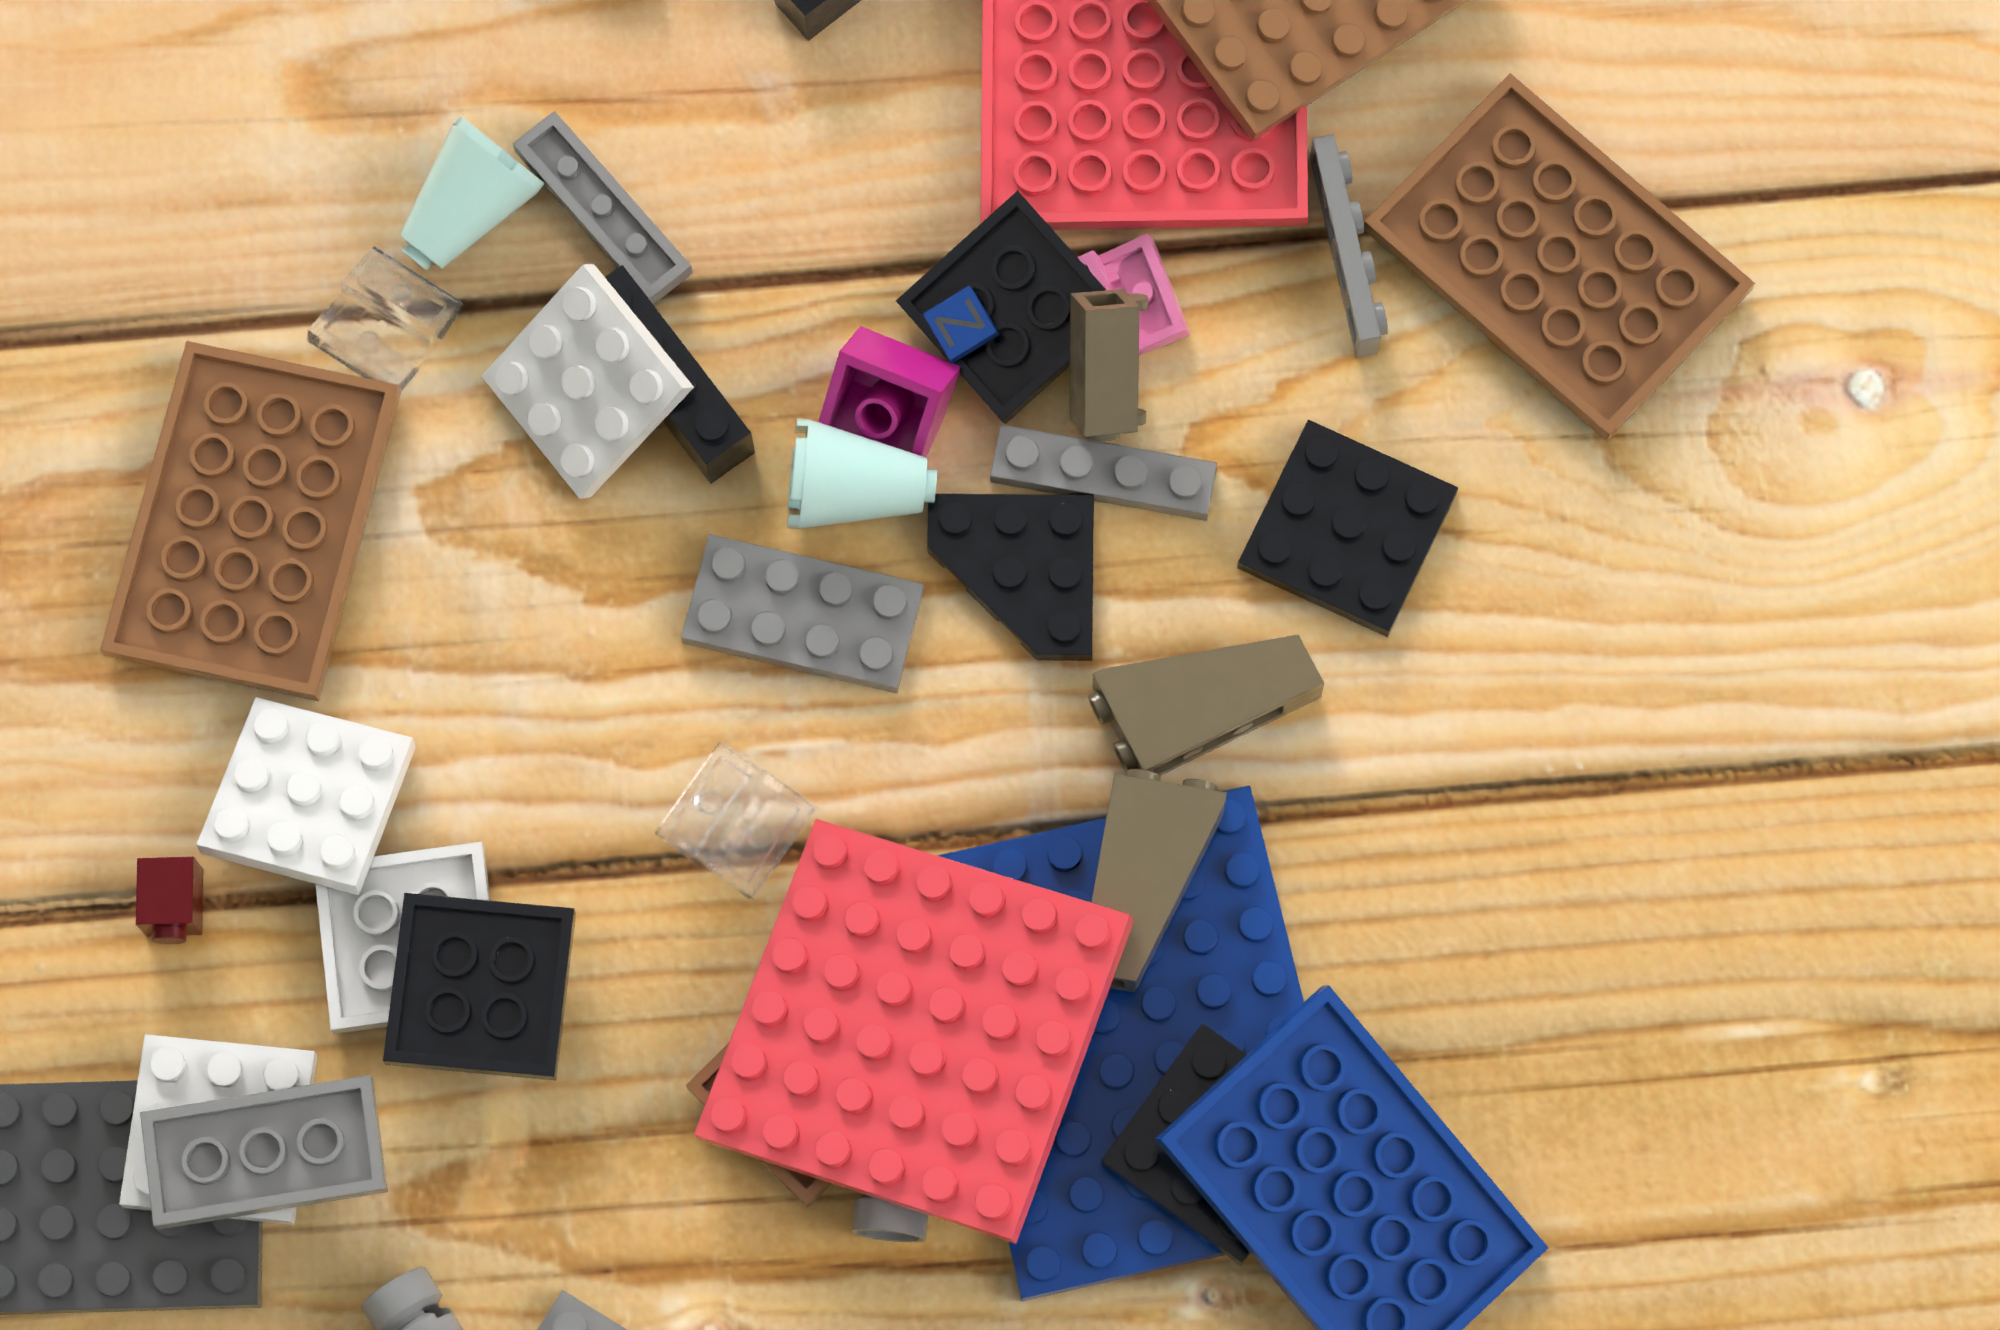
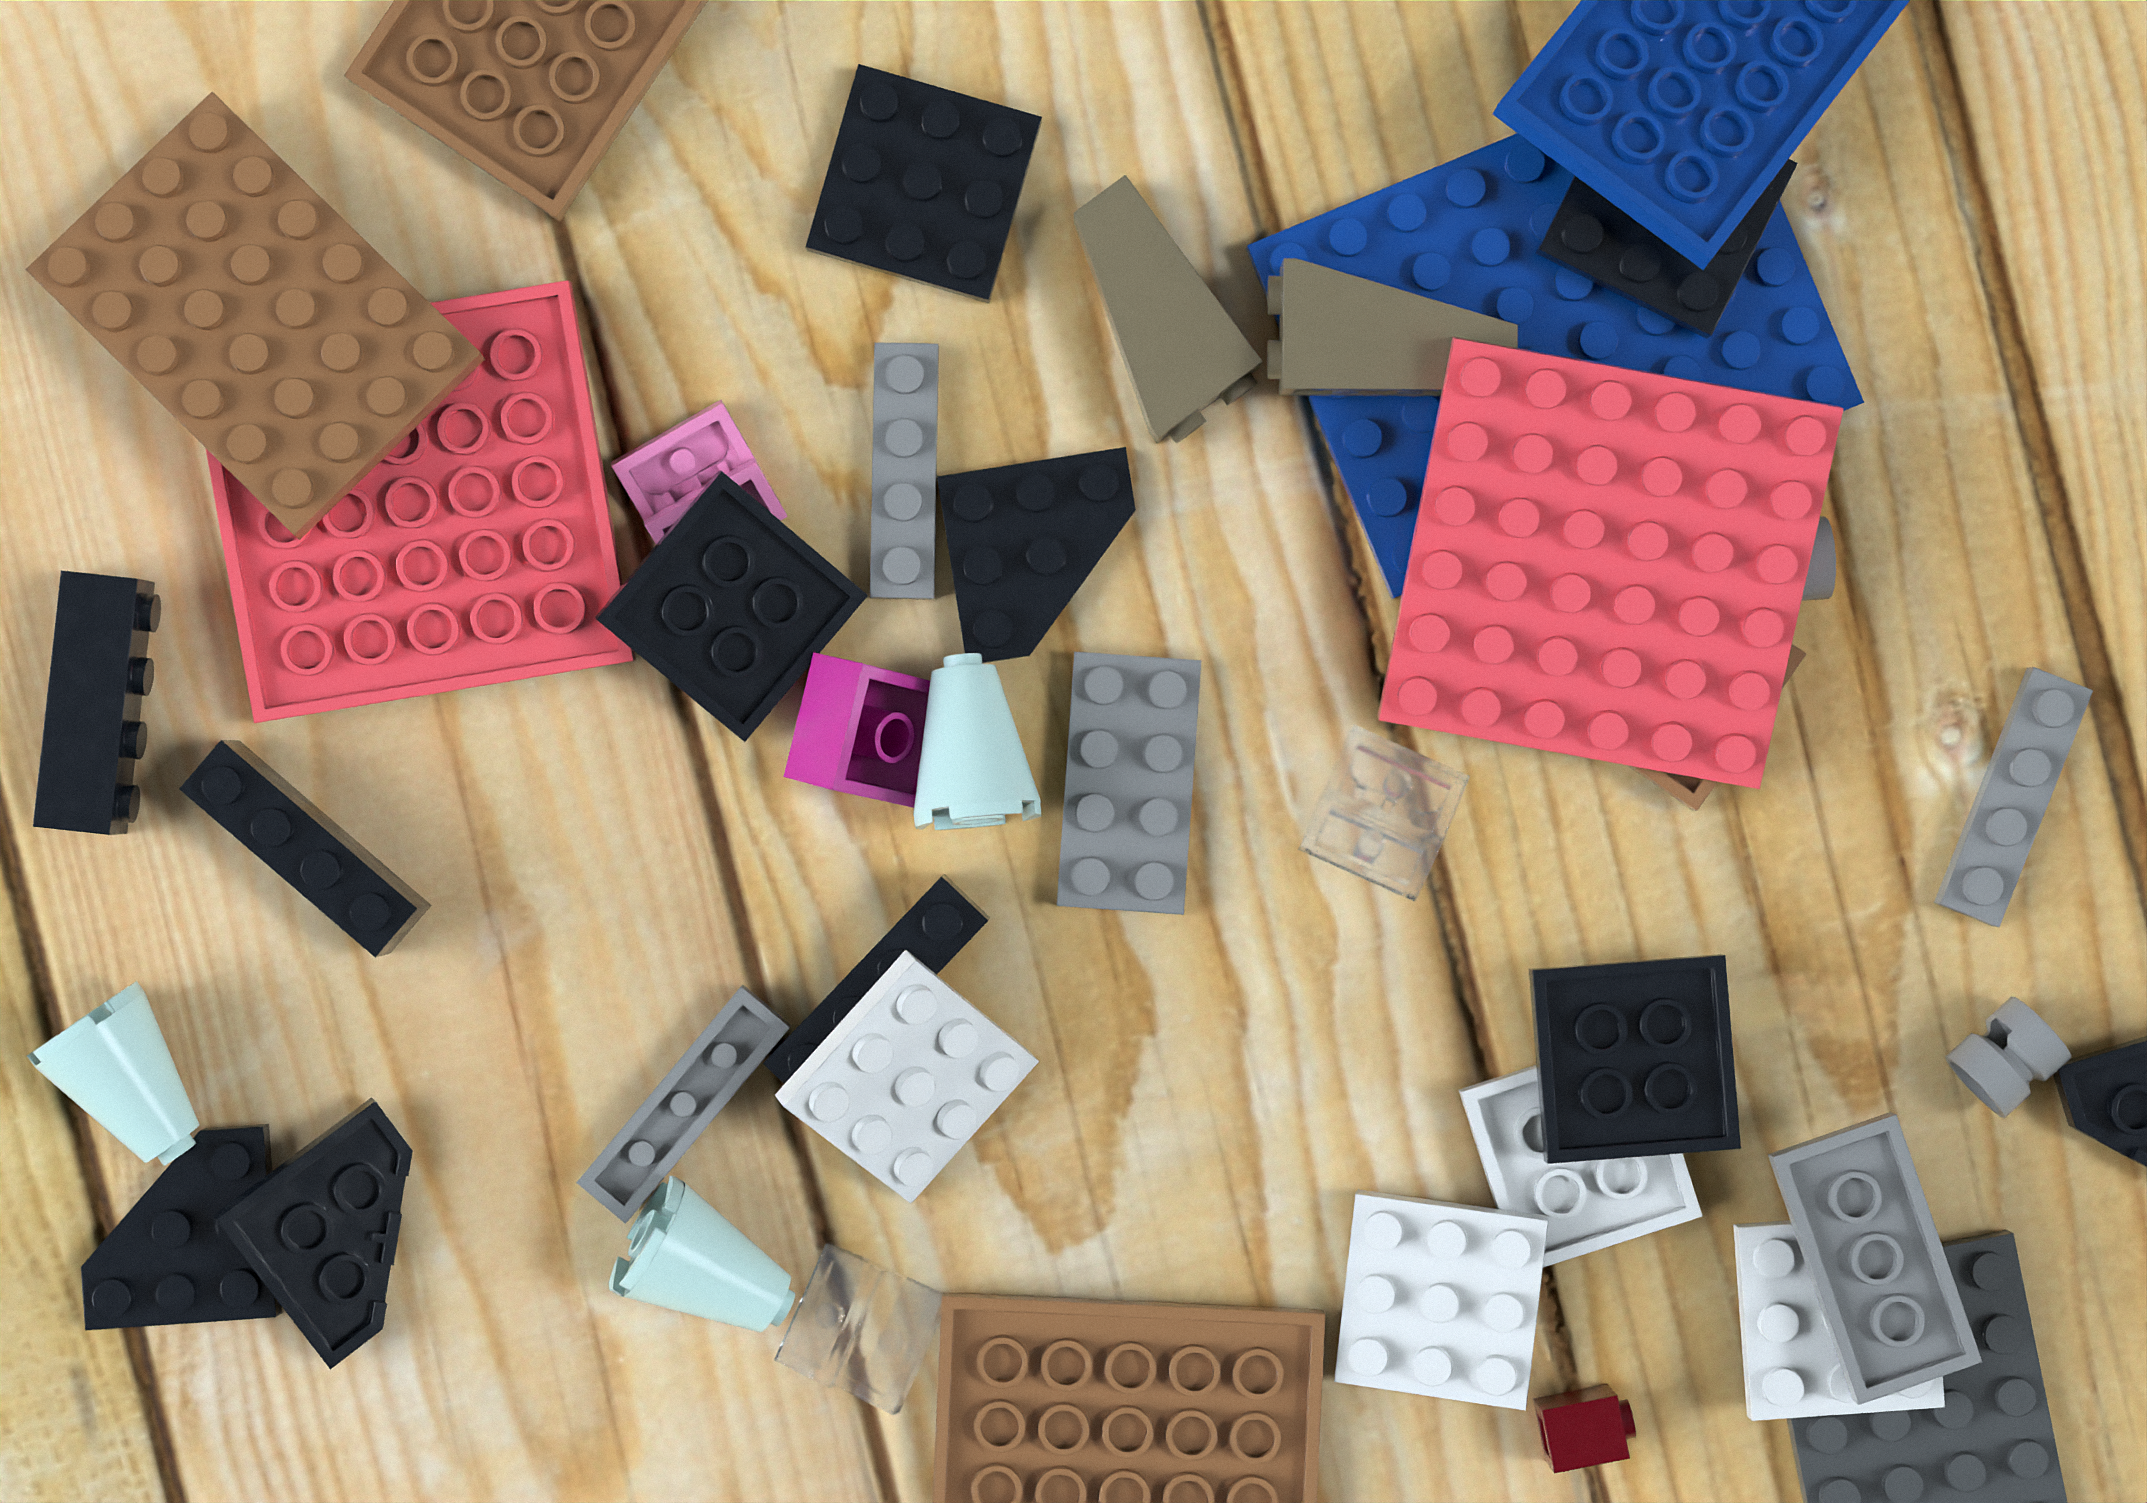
camera: 100 degrees left, 15 degrees up
(961, 324) = (766, 659): blue tile -> none
(1105, 363) = (787, 482): dark tan brick -> none
(1343, 223) = (562, 242): light grey plate -> none

